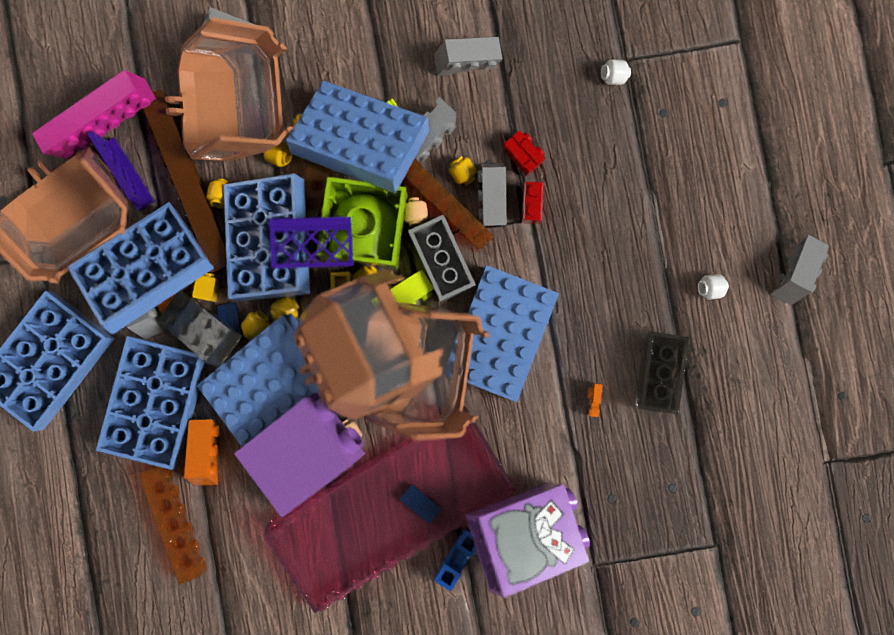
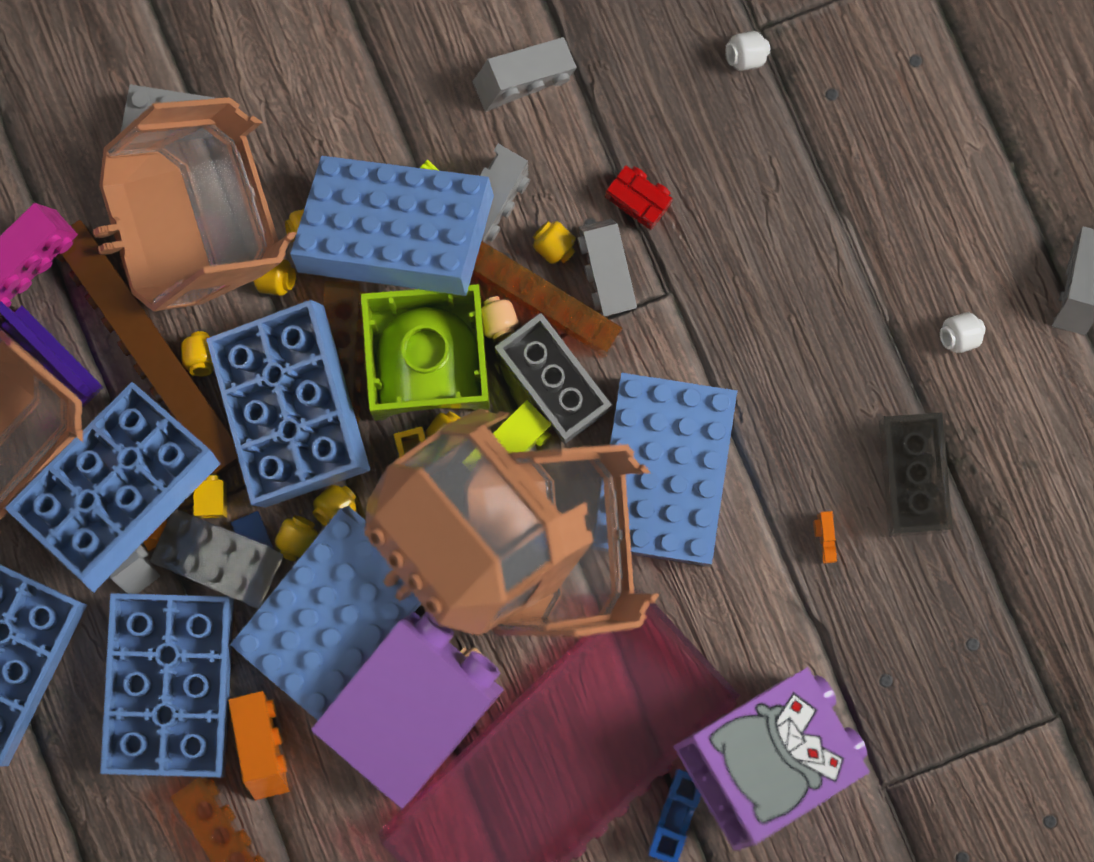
camera: 15 degrees left, 5 degrees down
(305, 225) = (355, 367): dark purple fence -> none
(420, 503) = (602, 749): dark blue tile -> none
(532, 202) = (668, 267): red brick -> none

